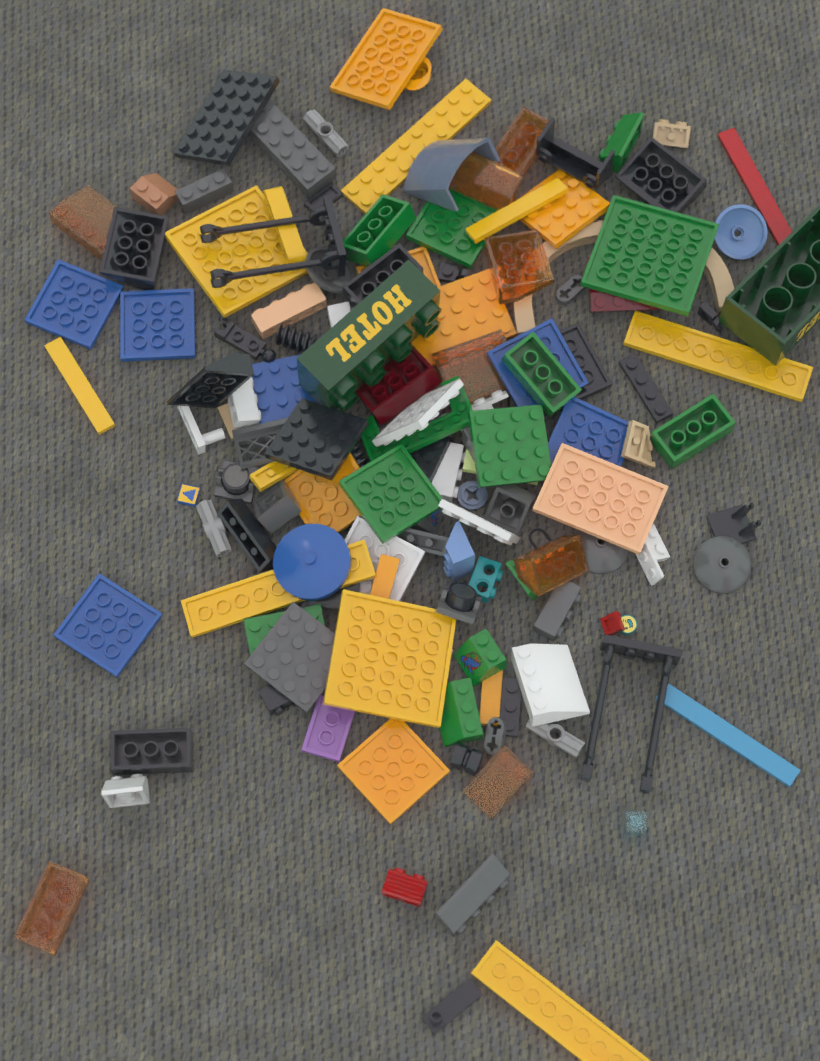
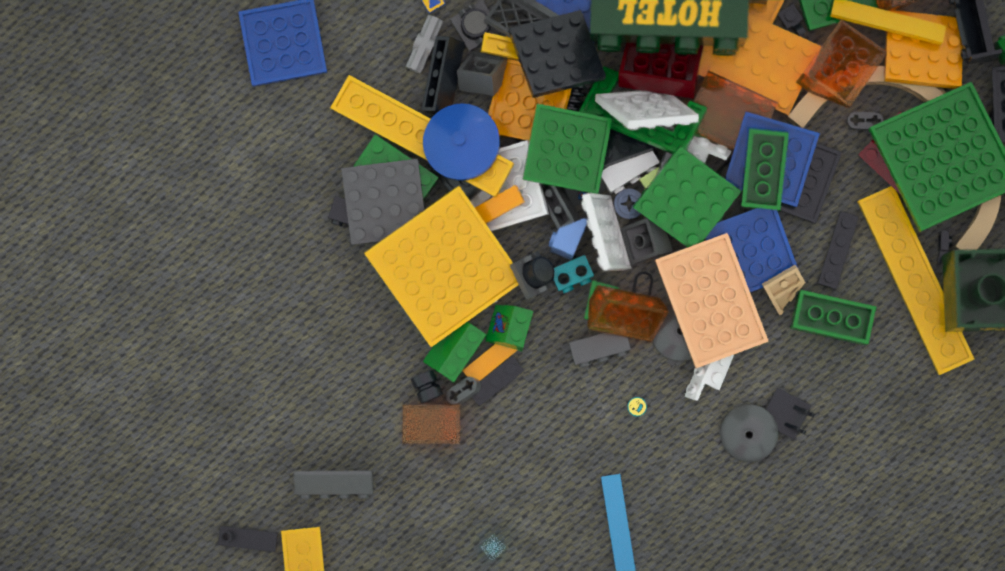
camera: 45 degrees right, 15 degrees up
(52, 908) = (53, 206): clear orange brick -> none
(126, 791) = (178, 174): white slope -> none
(151, 751) = (222, 164): black brick -> none
(328, 731) = (352, 272): medium lavender plate -> none
(393, 769) = (371, 342): light orange plate -> none
(404, 887) = (296, 429): red brick -> none
(548, 682) = (537, 393): white slope -> none
(565, 742) = (506, 444): light grey piece -> none
(612, 623) = (626, 396): red tile -> none
(649, 654) = (616, 428): black piece -> none

